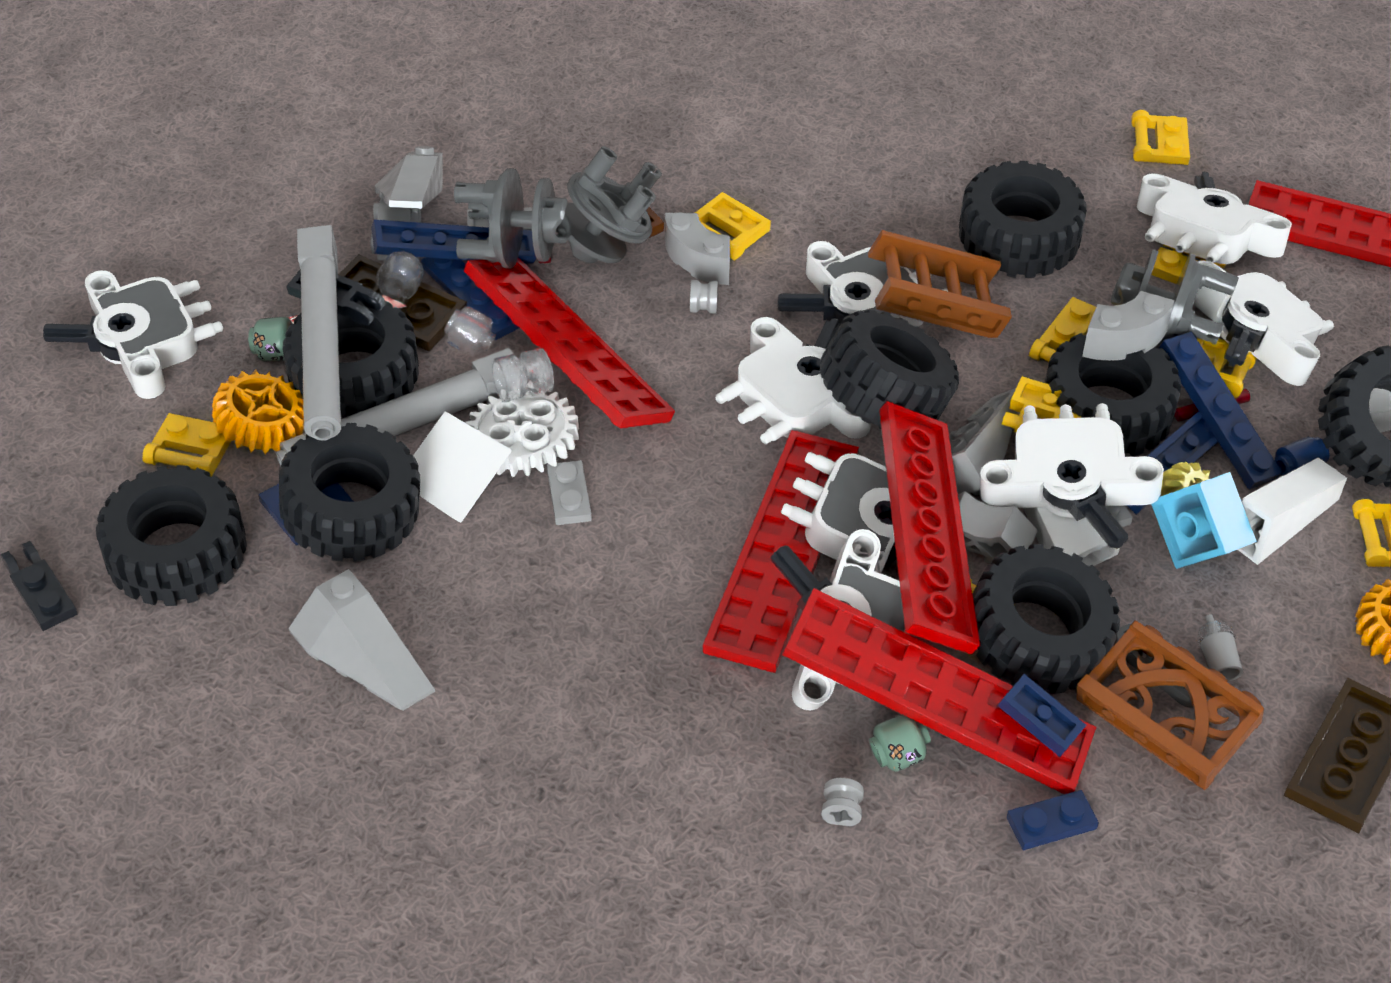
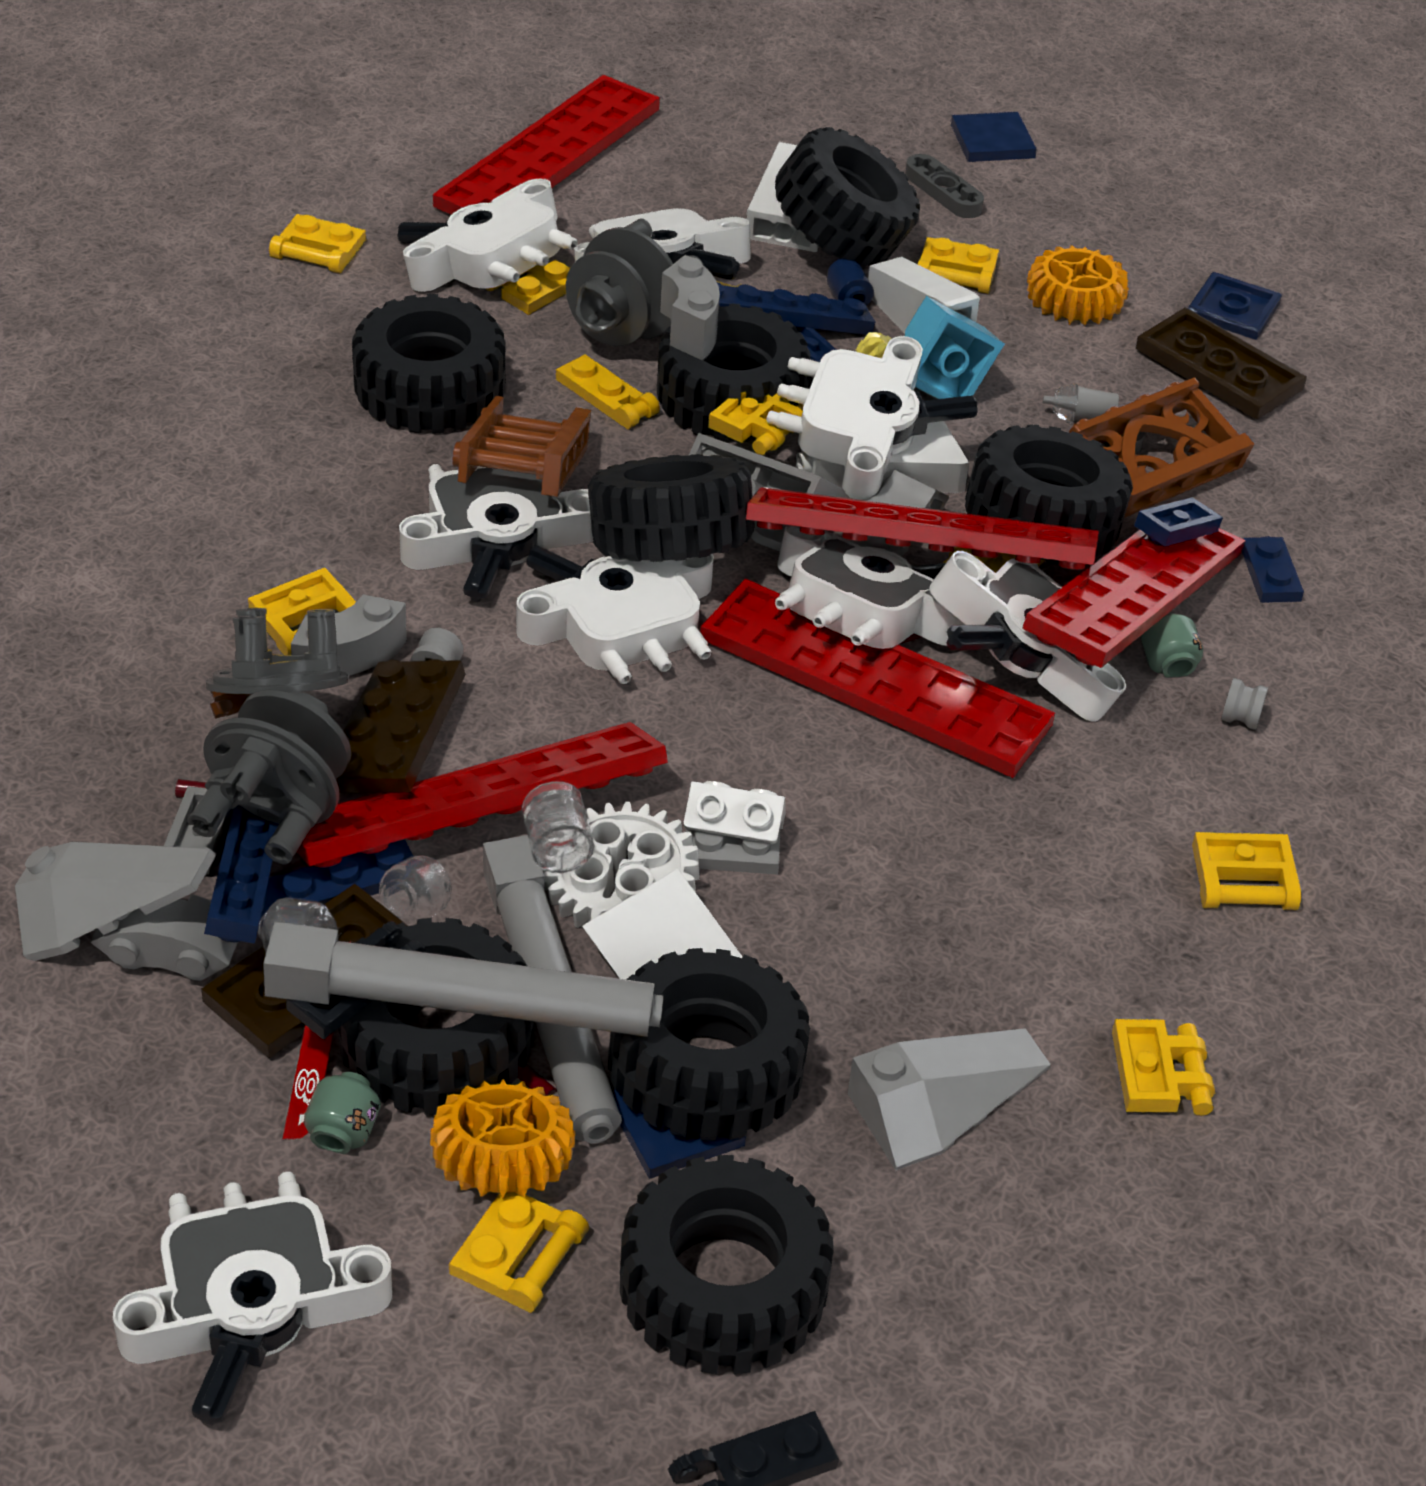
camera: 80 degrees left, 5 degrees down
(407, 765) = (1148, 1071): none -> yellow plate
(592, 479) = (735, 812): none -> white bracket
(623, 289) = (398, 723): none -> dark brown plate
(651, 814) = (1247, 859): none -> yellow plate

